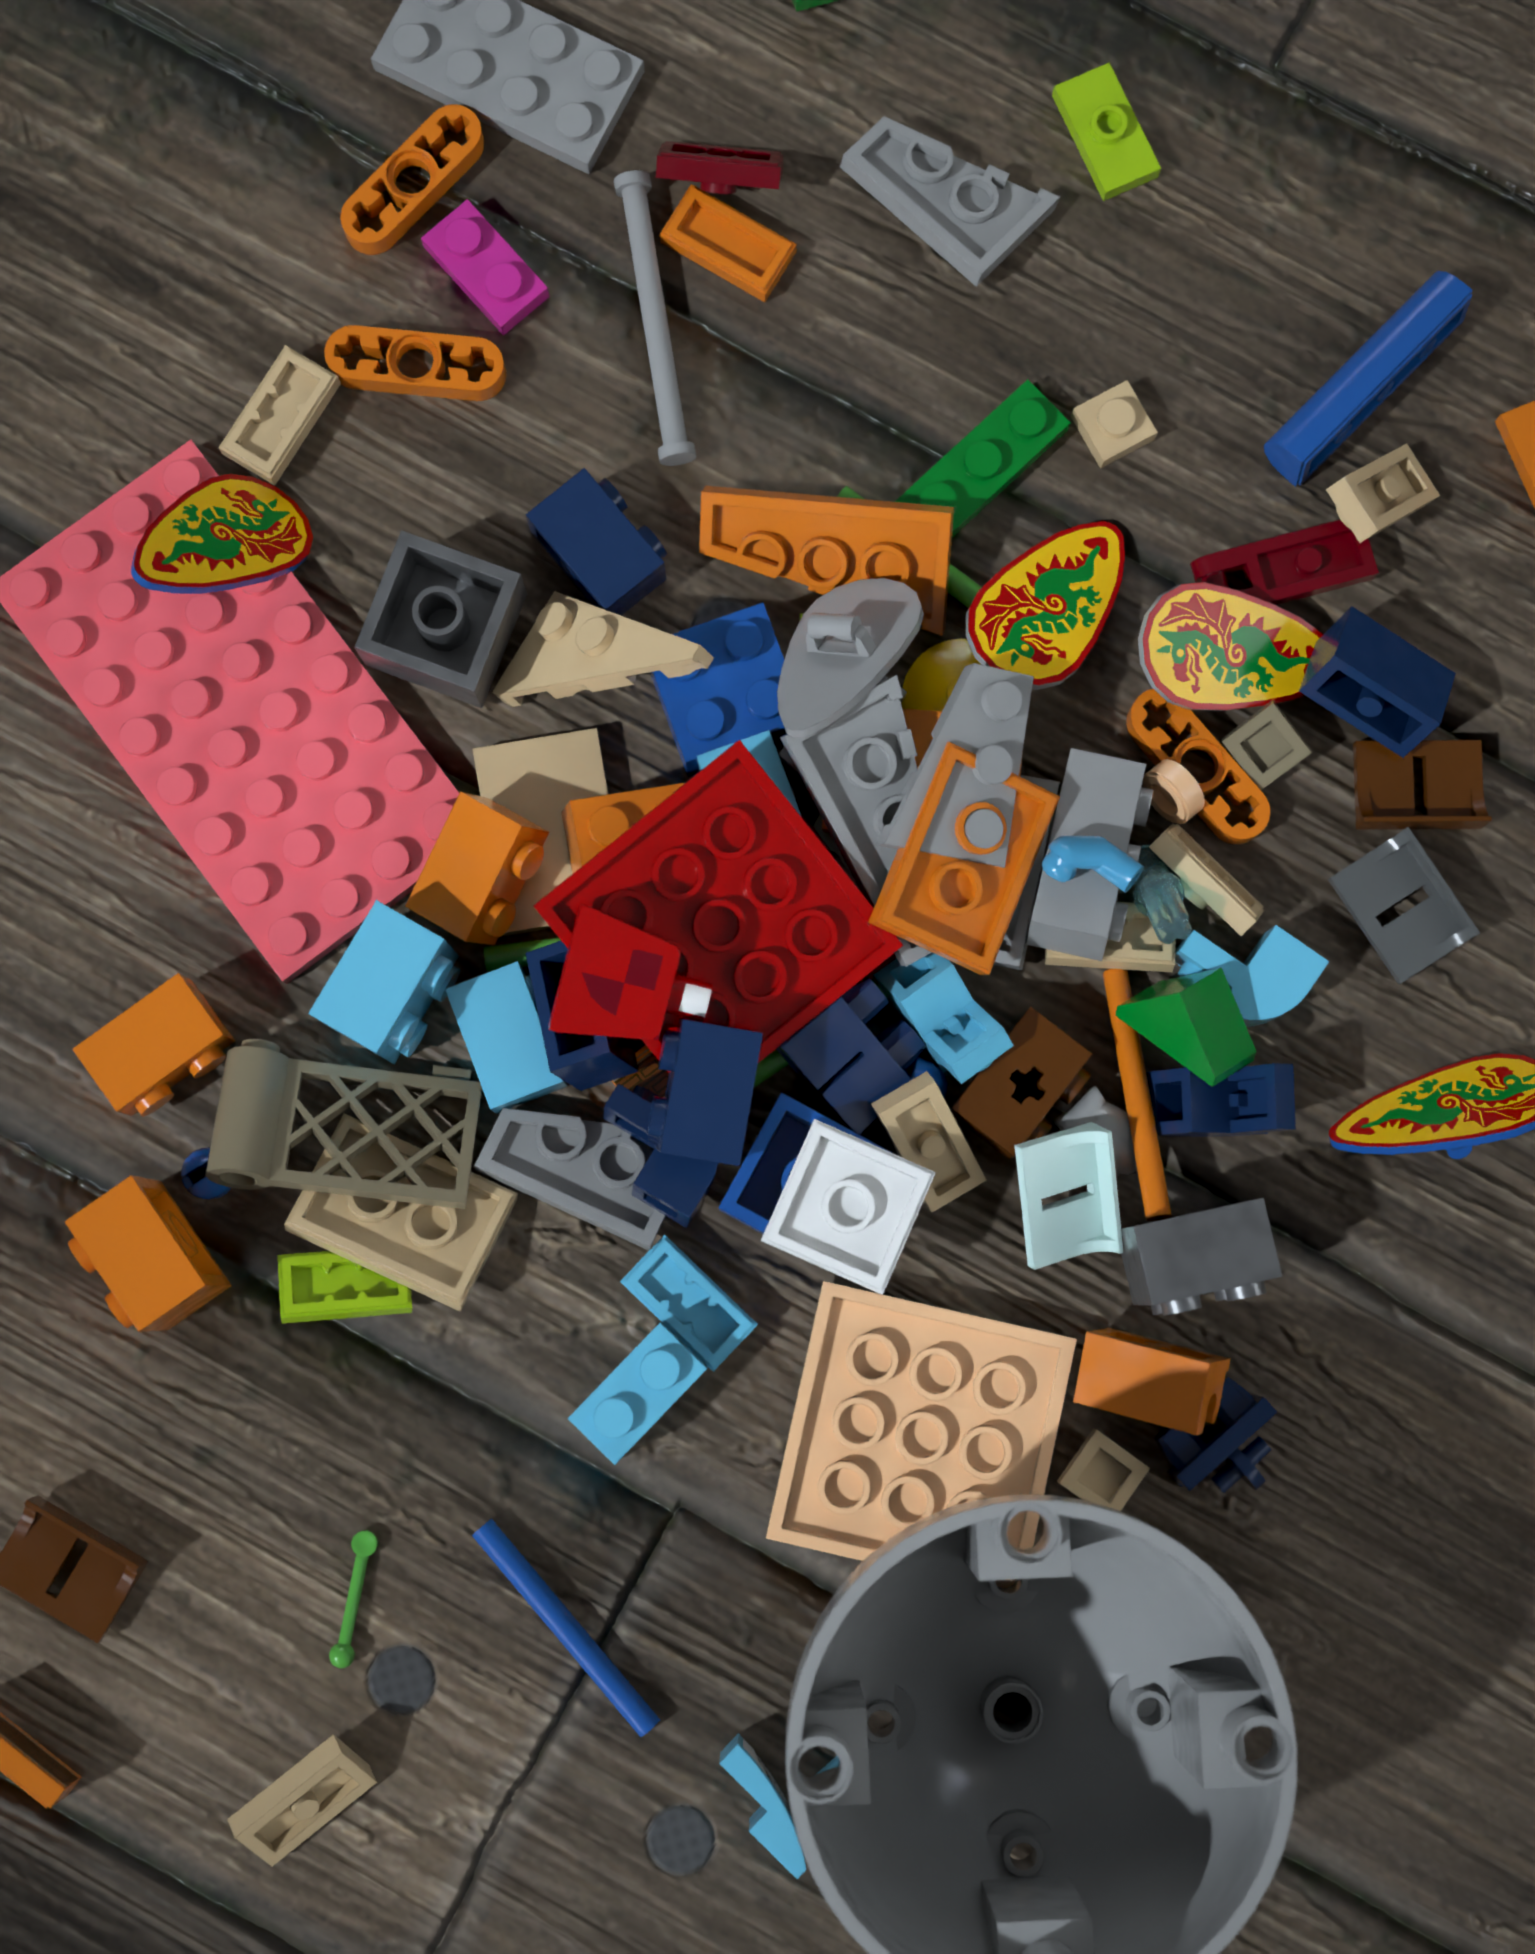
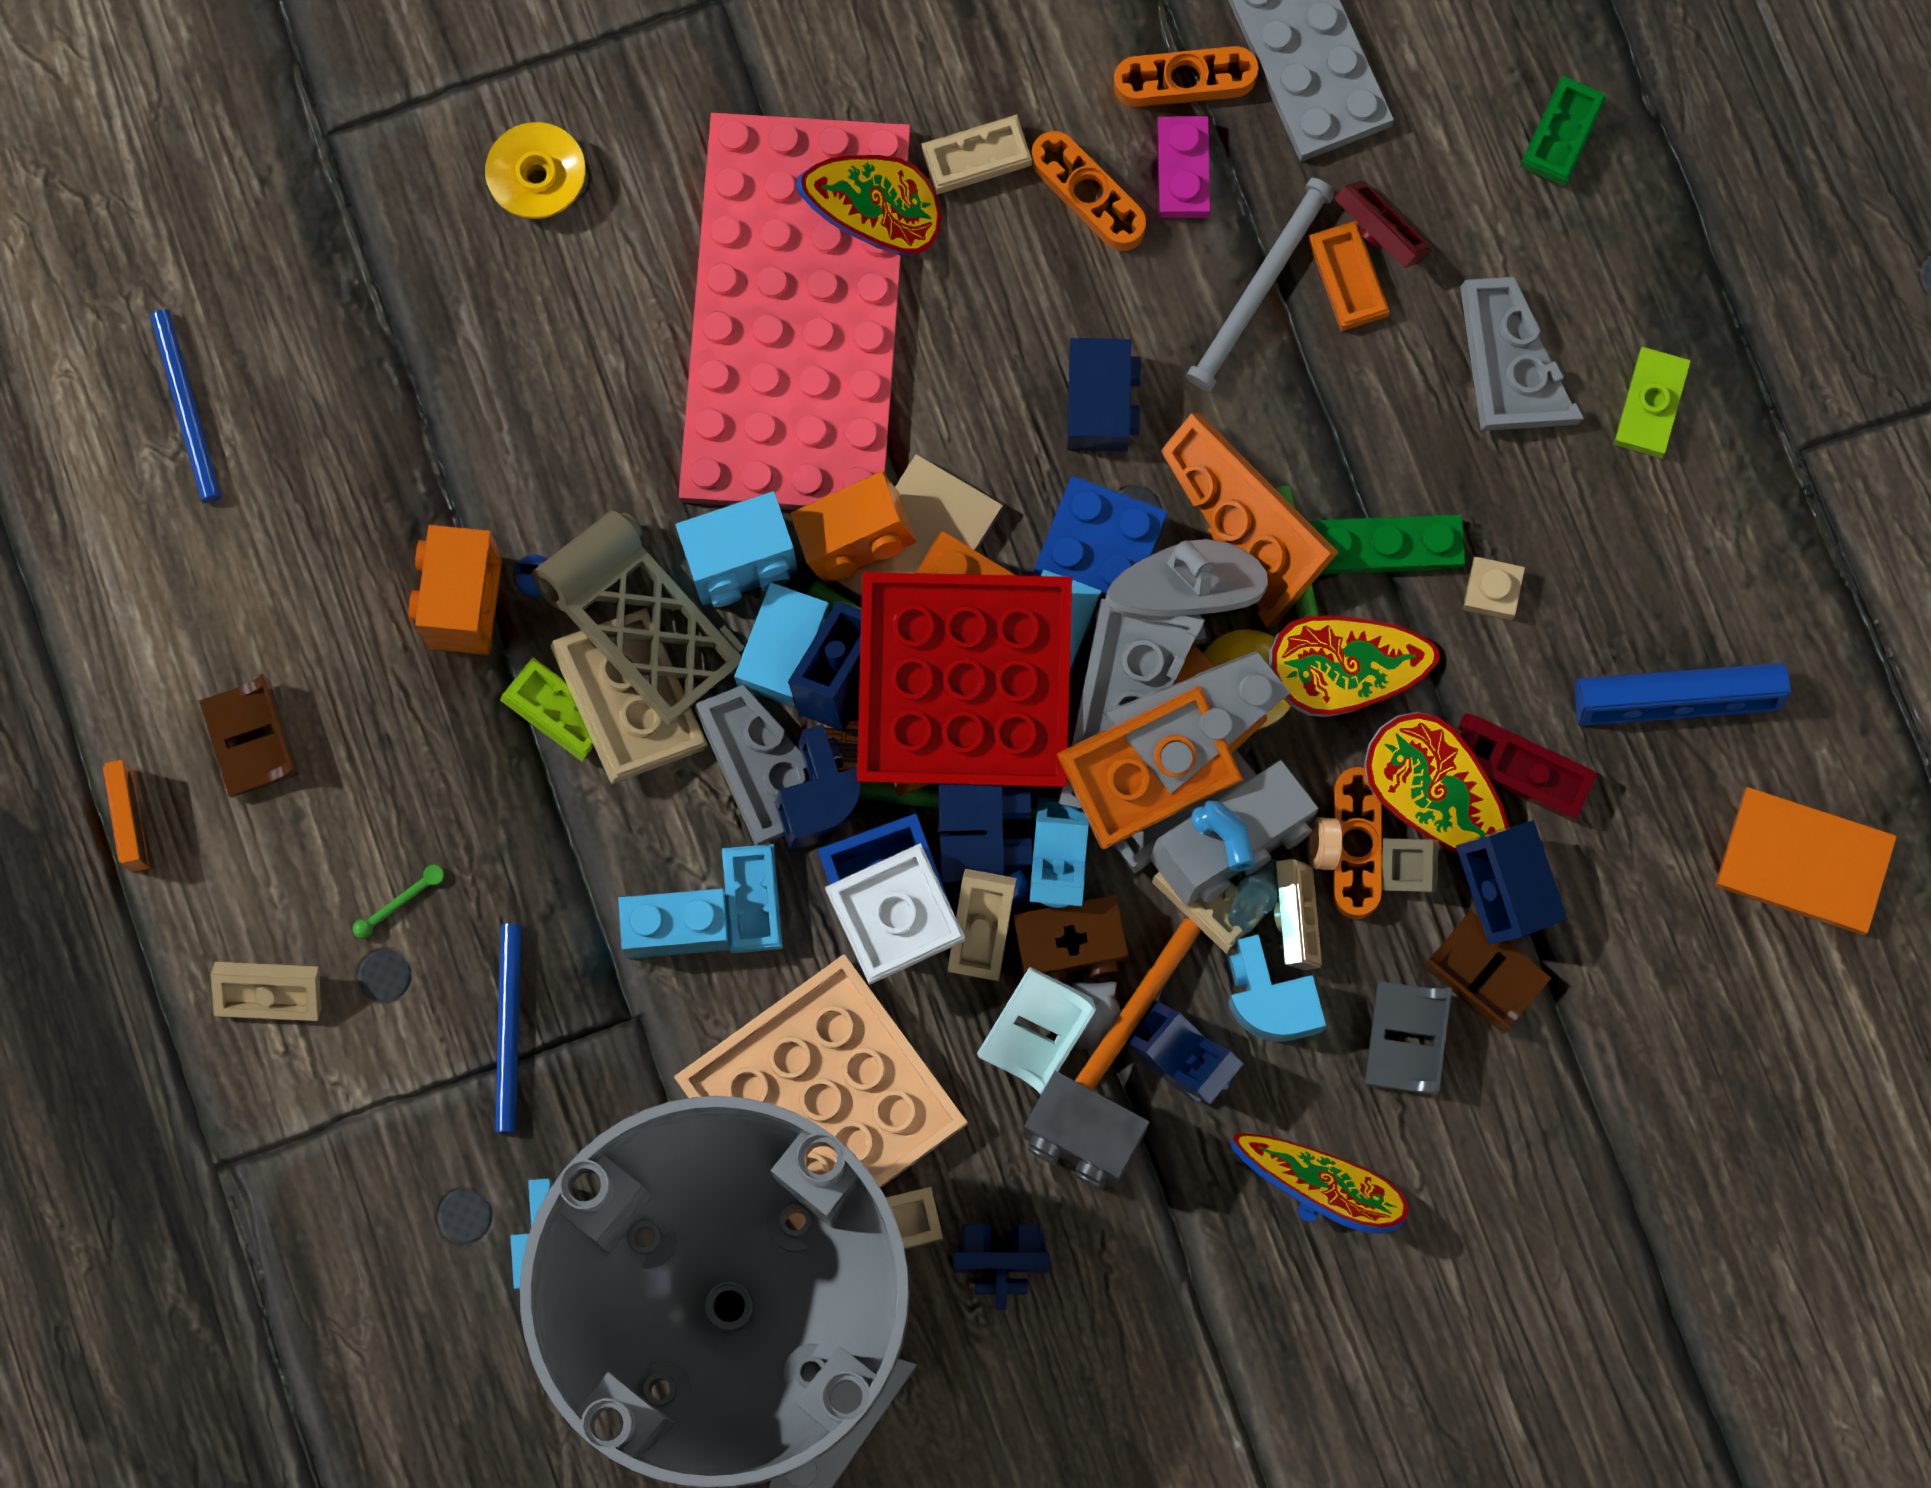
camera: 45 degrees right, 5 degrees down
(155, 1047) = (569, 472): orange brick -> none
(441, 619) = (964, 359): flat silver brick -> none
(592, 650) = (1037, 452): tan wing -> none
(622, 981) = (875, 659): red torso -> none
(706, 1091) = (869, 768): dark blue brick -> none
(1150, 1380) = (989, 1182): orange hinge -> none
(1193, 1023) = (1206, 991): green slope -> none
(1382, 493) = (1621, 770): tan plate -> none

